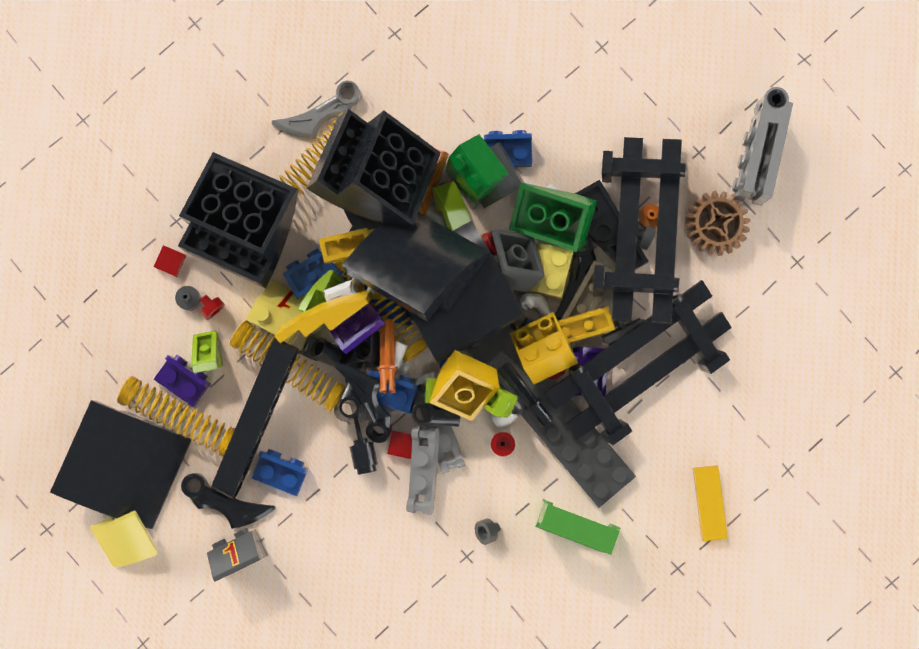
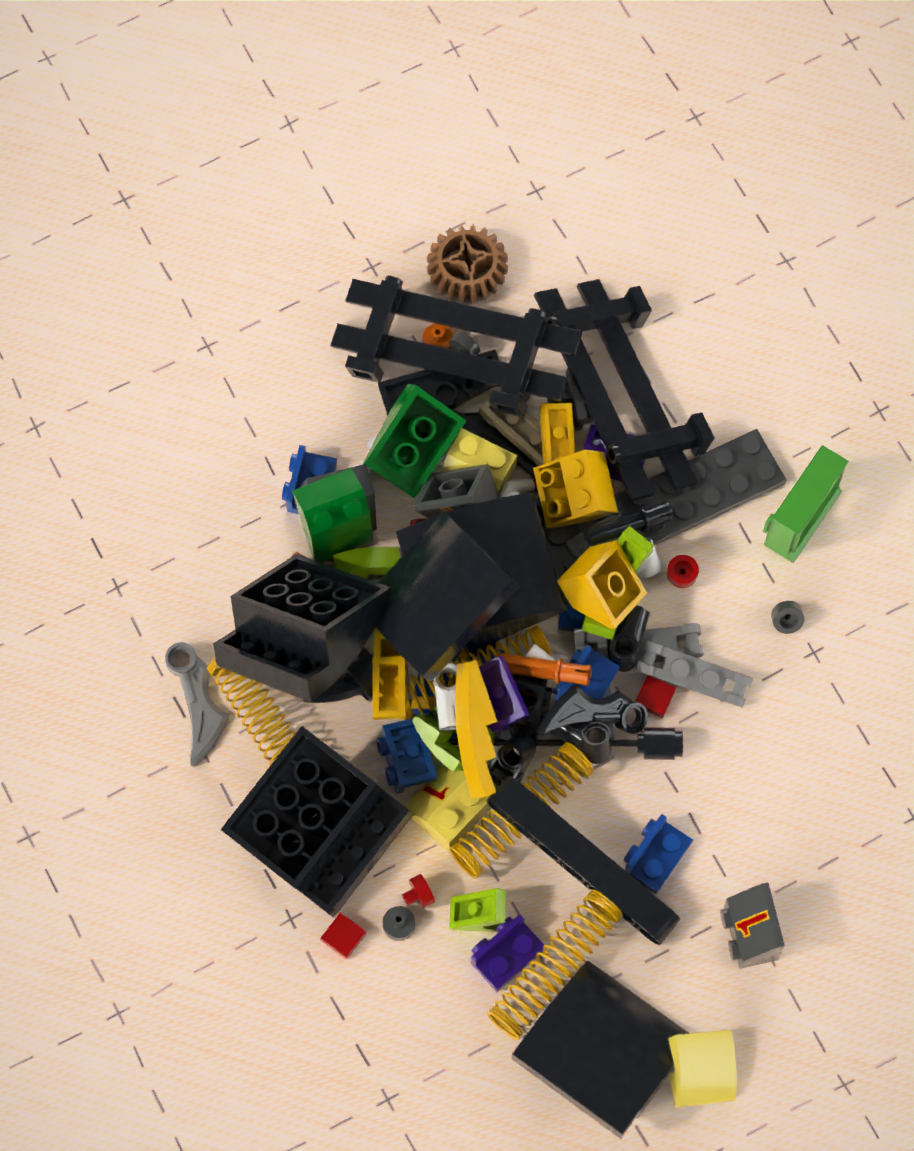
camera: 80 degrees left, 15 degrees down
(236, 511) = (695, 923): black piece -> none
(710, 503) = (807, 354): yellow tile -> none
(770, 119) = (390, 187): light grey hinge -> none

